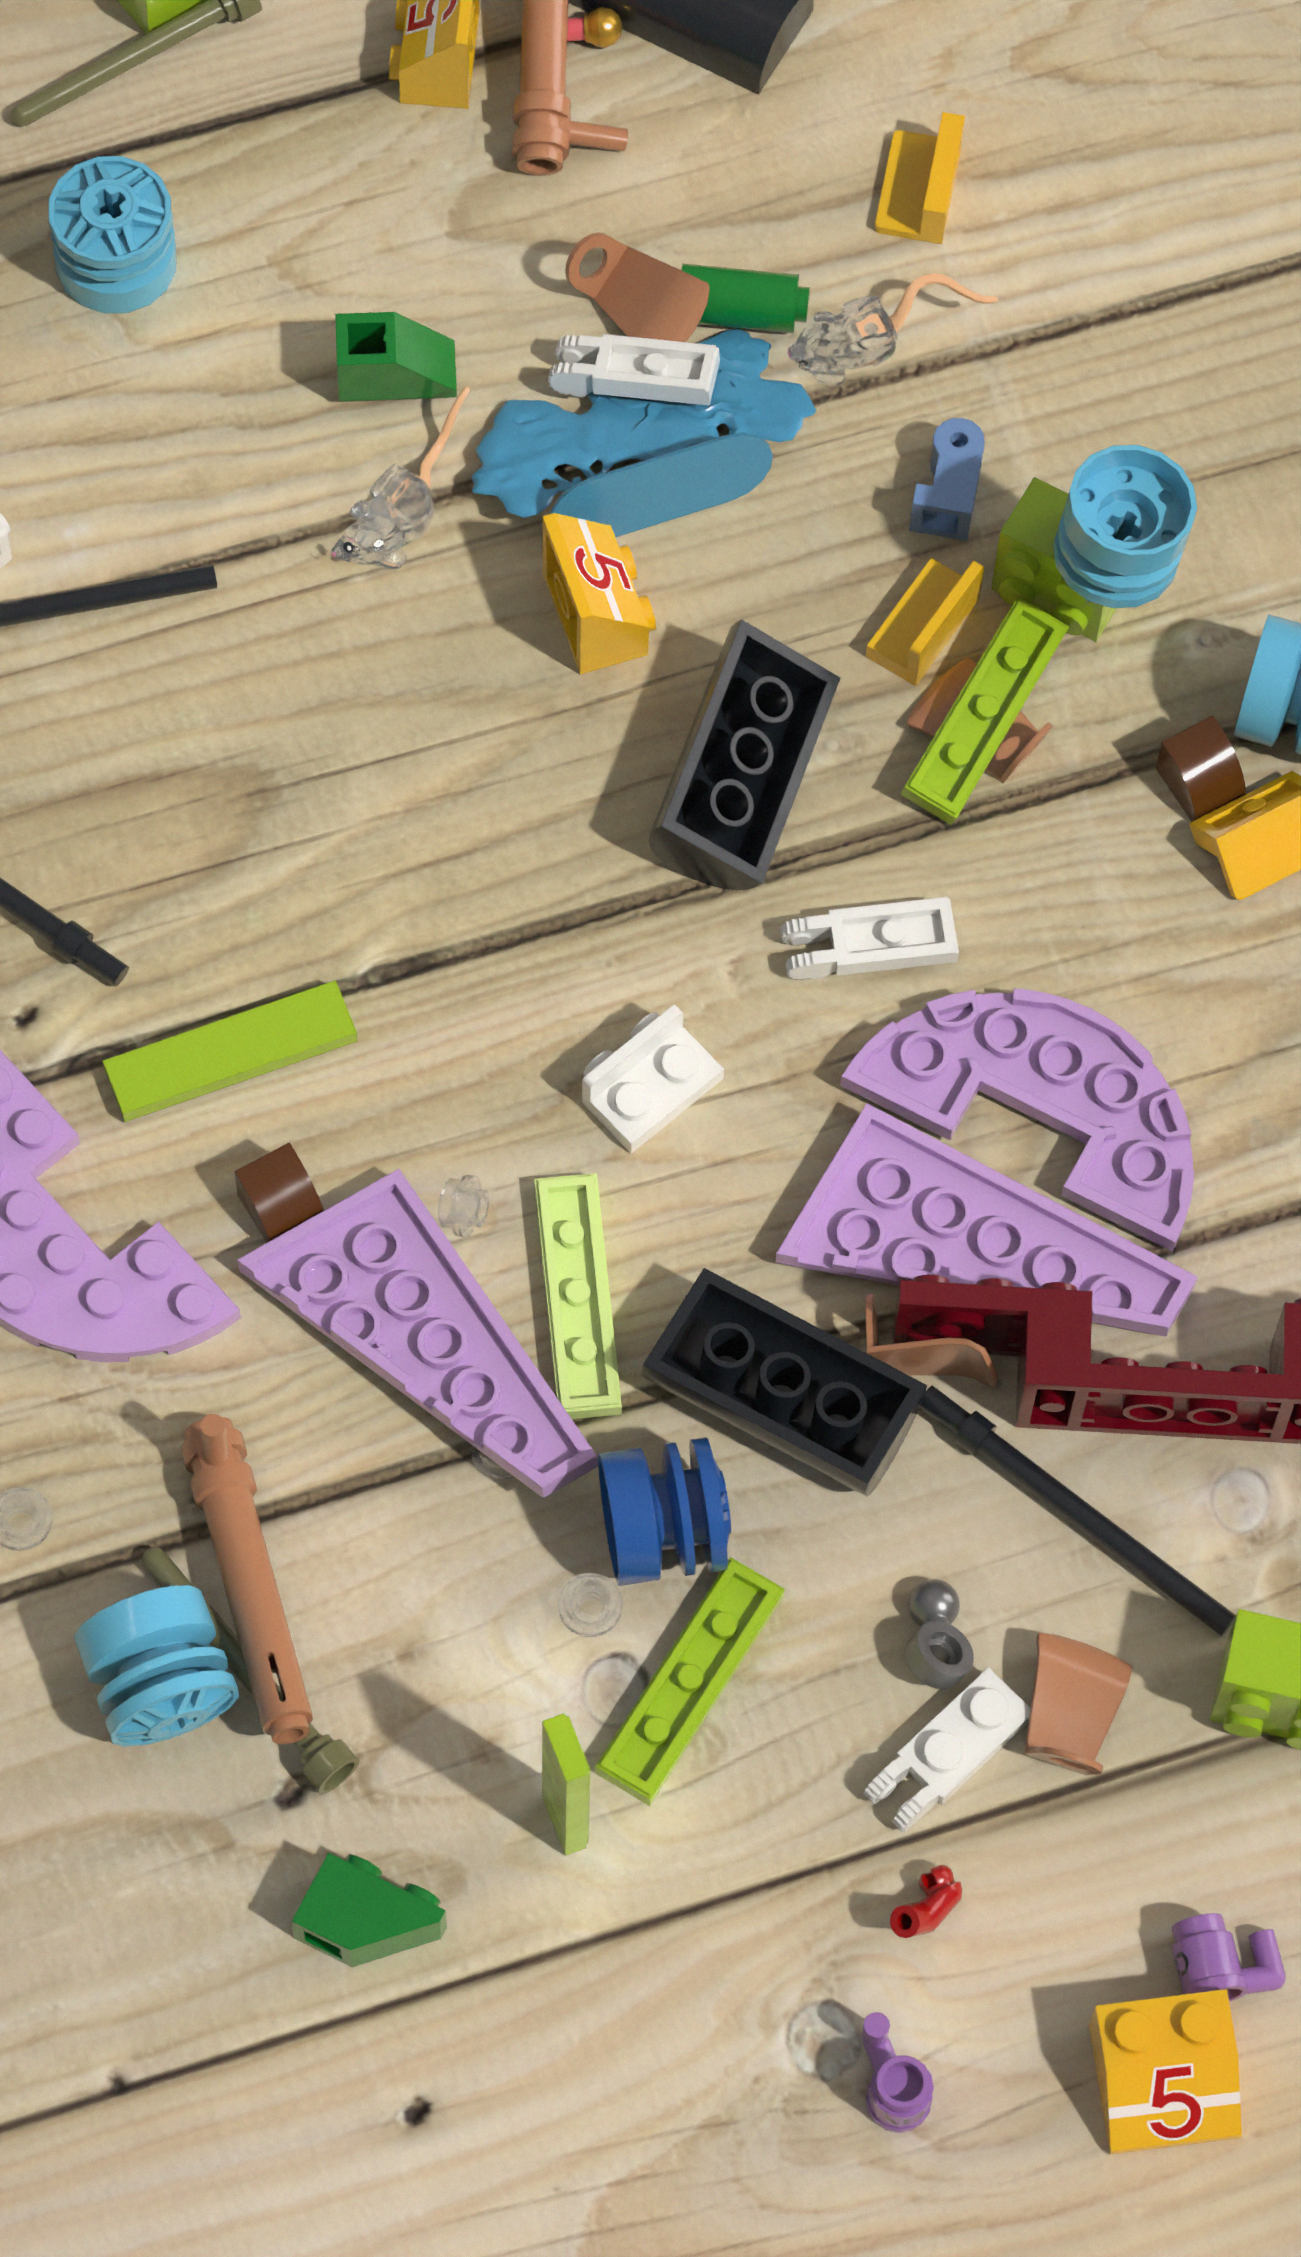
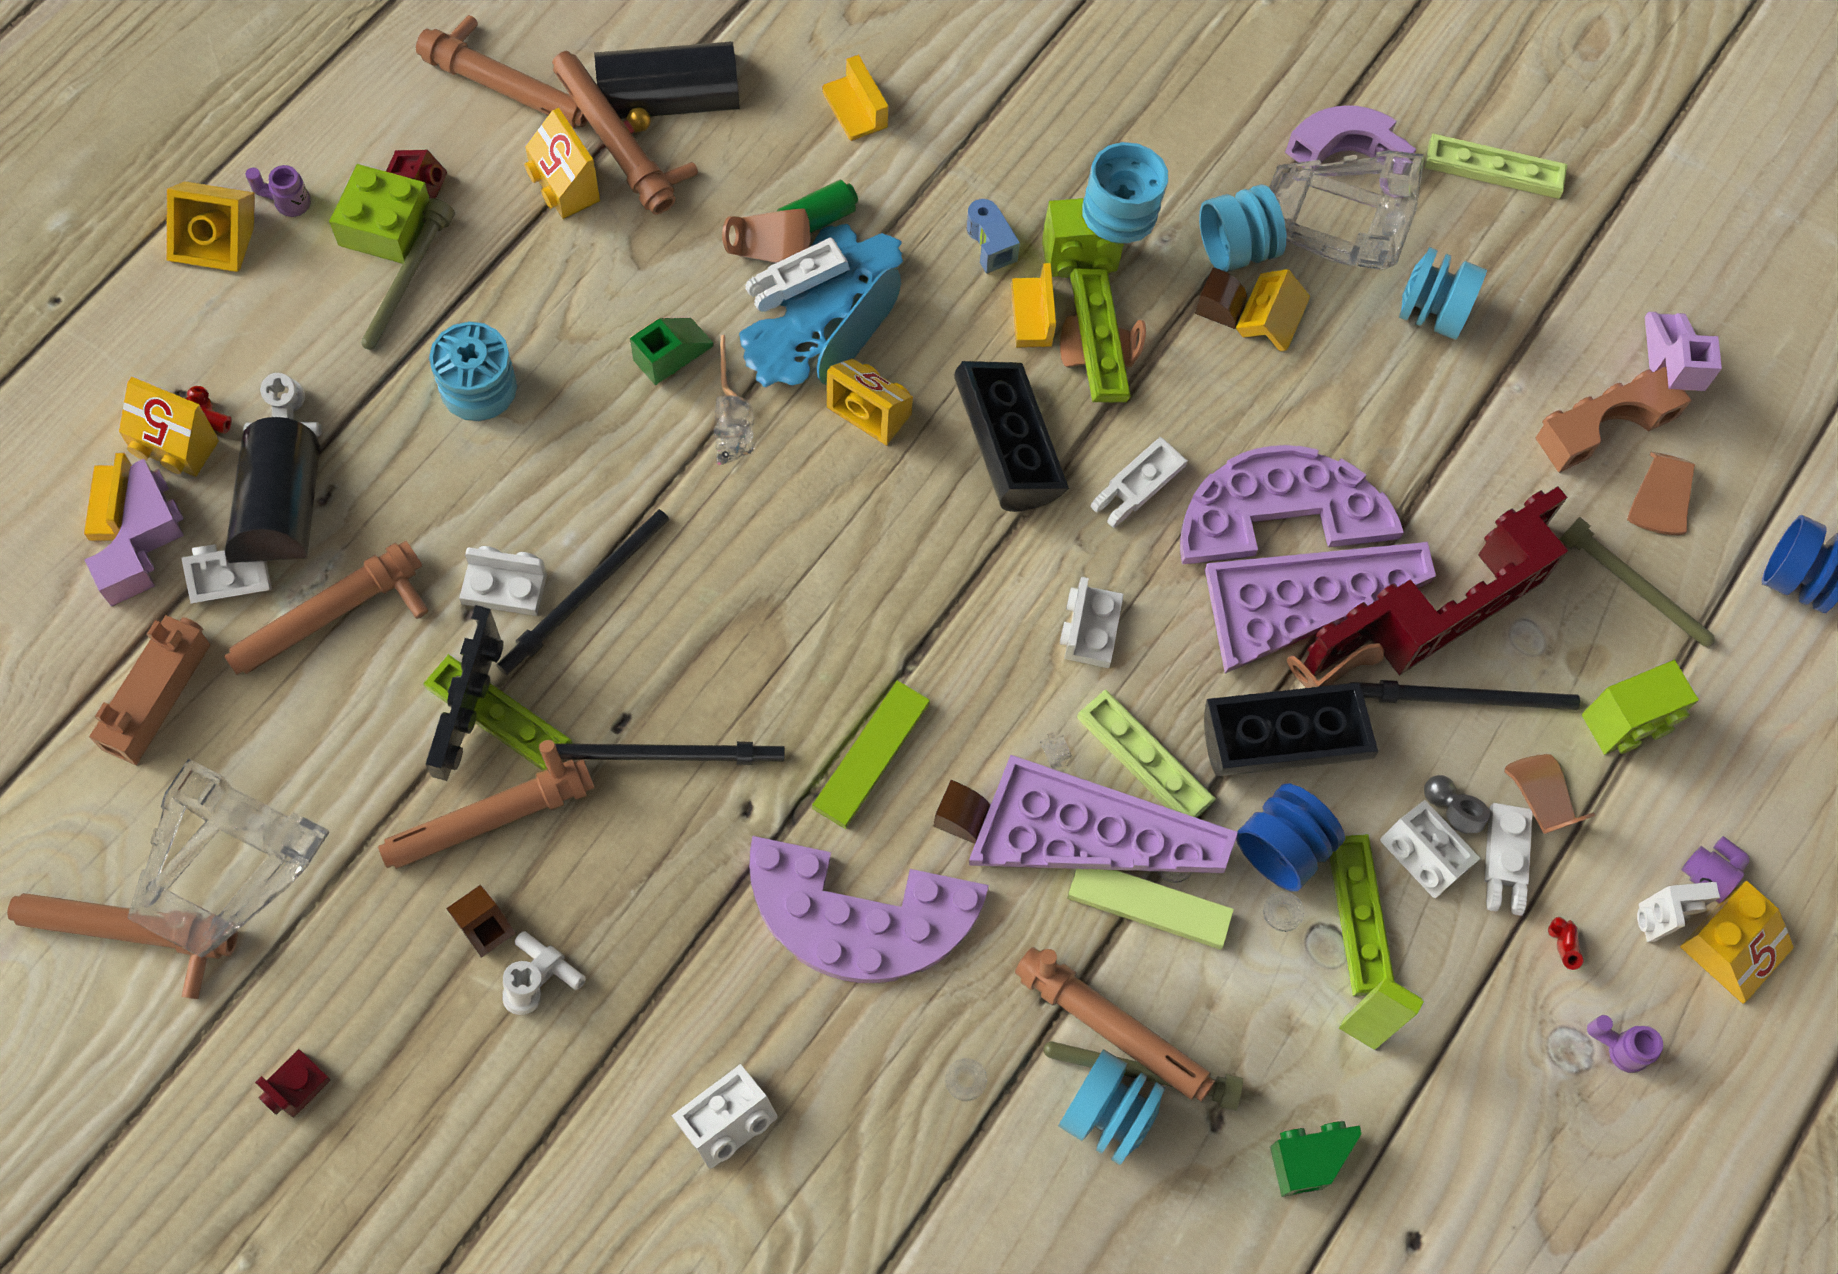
camera: 40 degrees left, 0 degrees up
(429, 1479) = (1152, 905): none -> yellowish green tile
(851, 1661) = (1429, 848): none -> white bracket
(861, 333) = (892, 188): clear animal -> none
(1111, 1950) = (1672, 907): none -> white bracket

